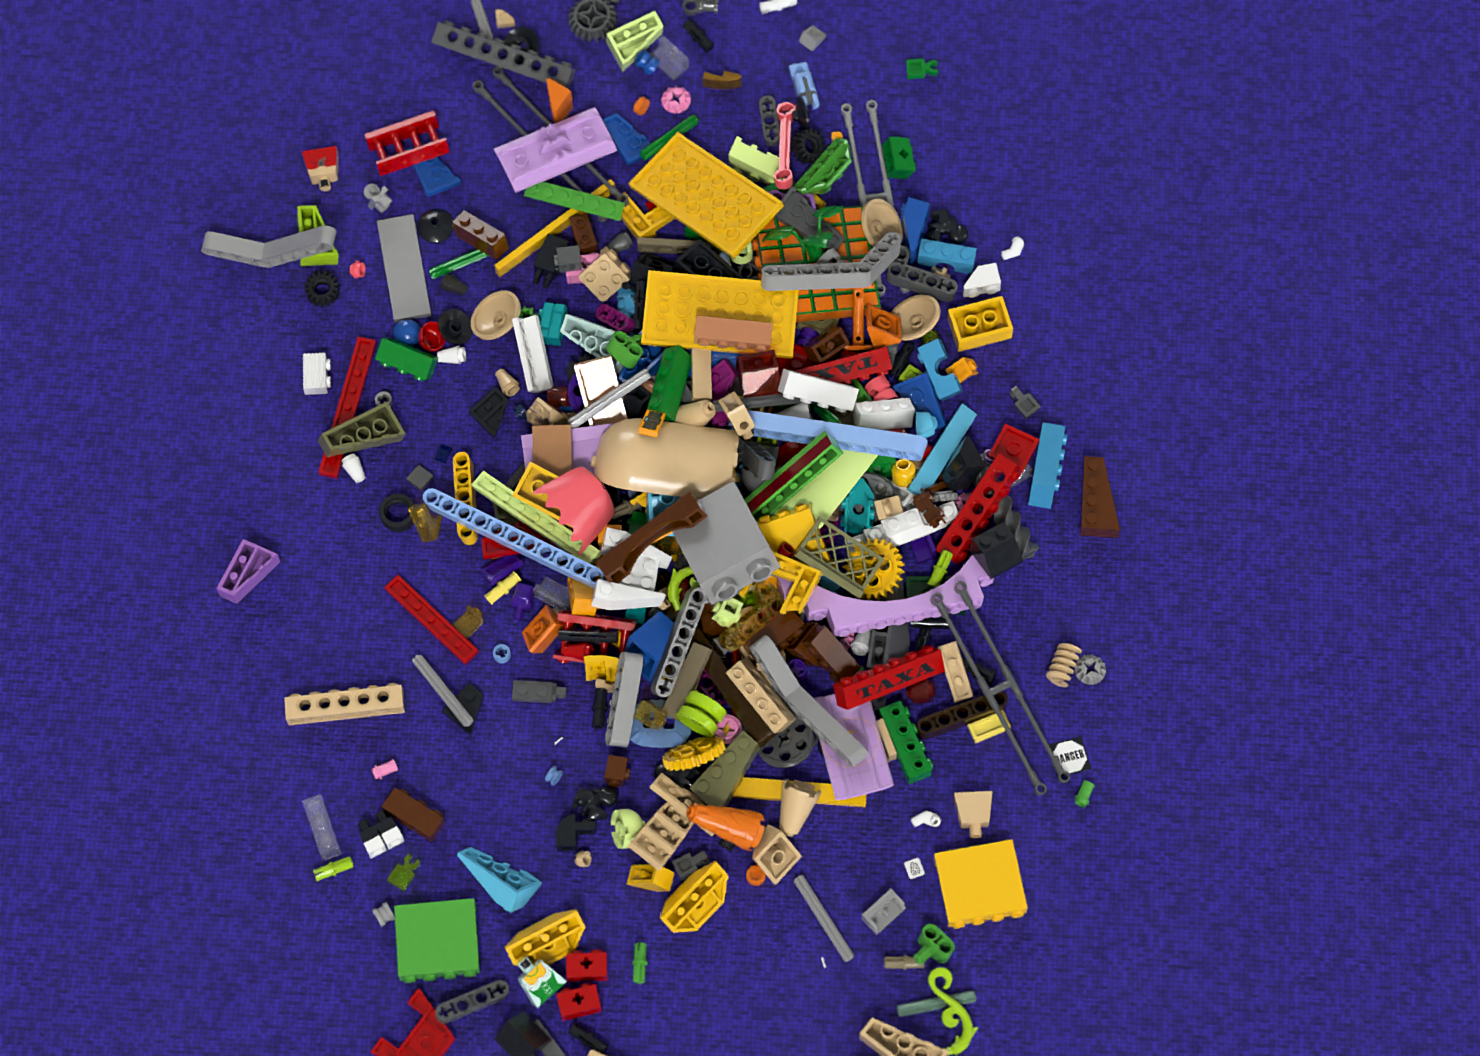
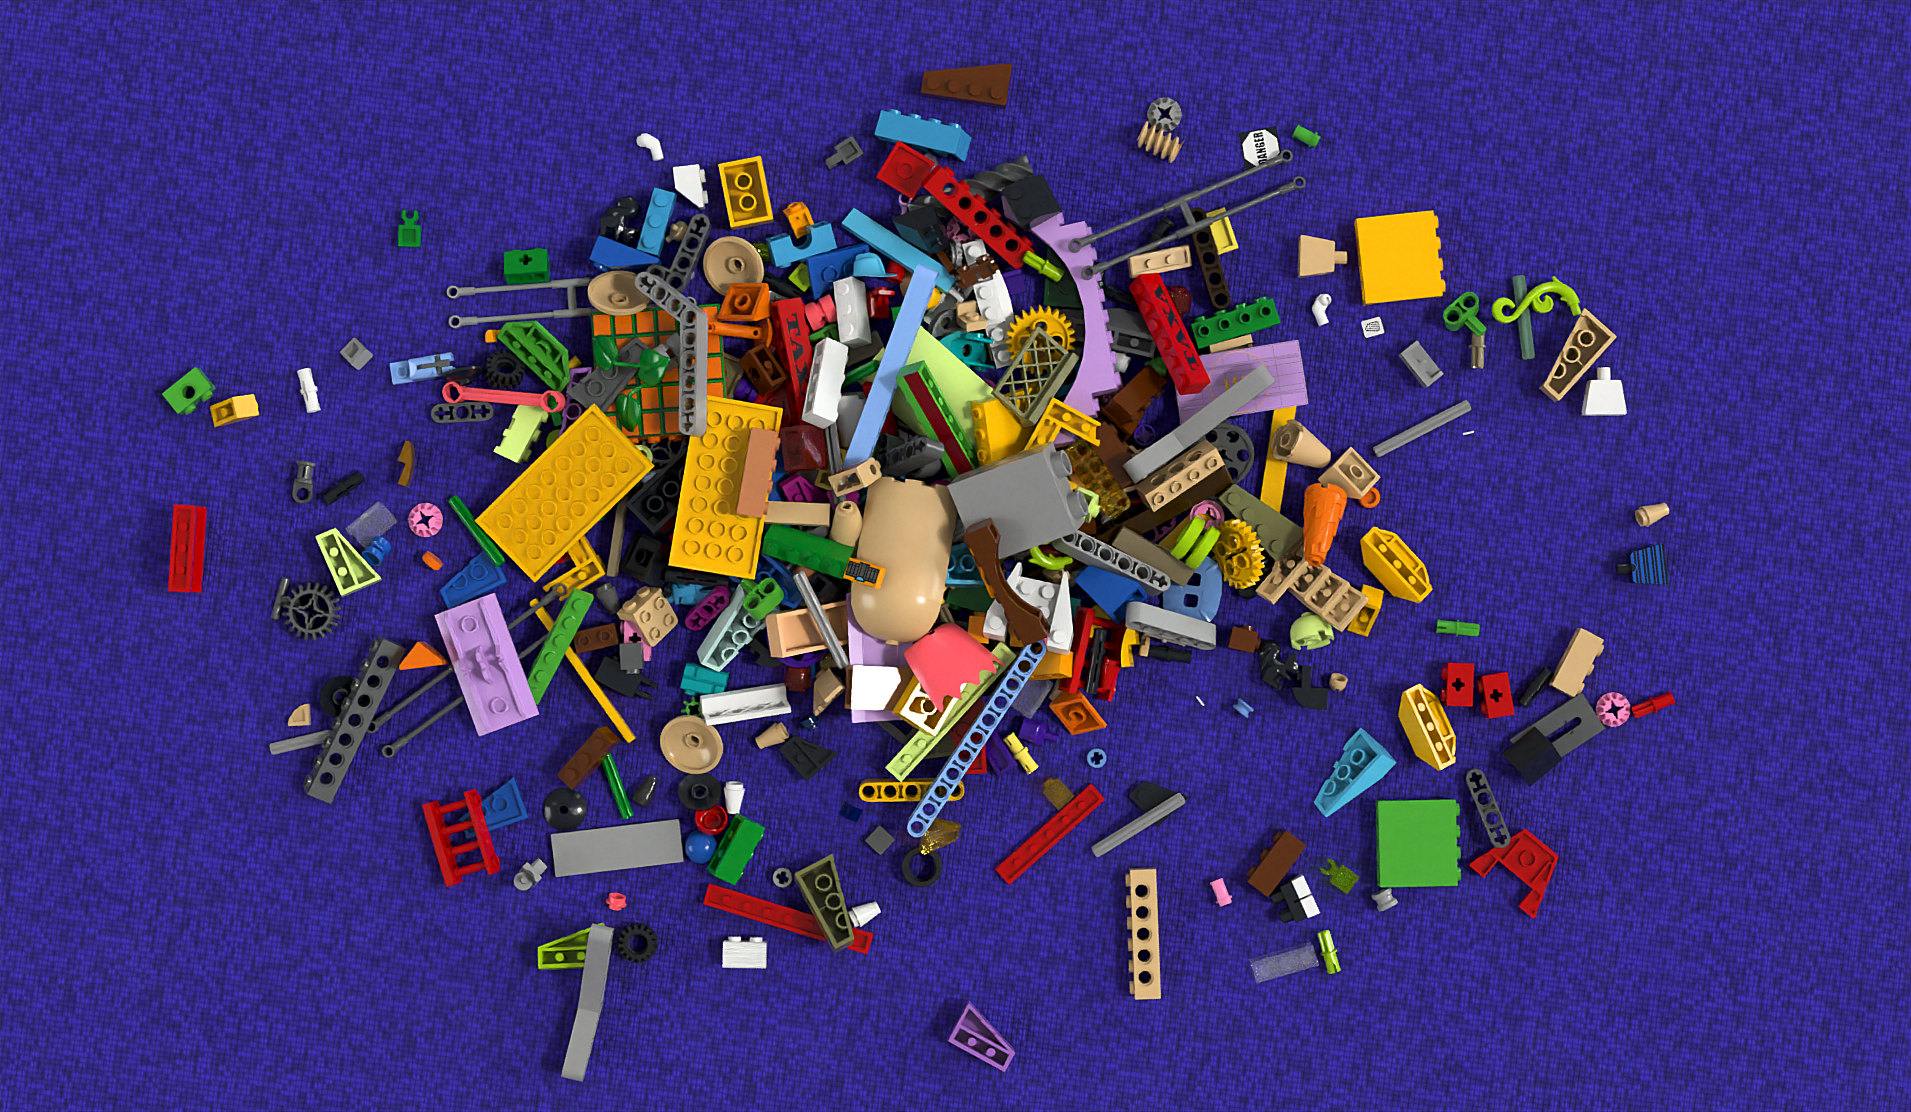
camera: 90 degrees left, 20 degrees up
(322, 166) = (481, 938): torso -> none
(537, 691) = (1143, 721): dark grey hinge -> none
(538, 981) = (1472, 735): torso -> none
(643, 715) = (1193, 604): clear yellow brick -> none
(687, 865) = (1354, 569): dark grey plate -> none
(785, 549) = (1021, 434): dark red hinge -> none

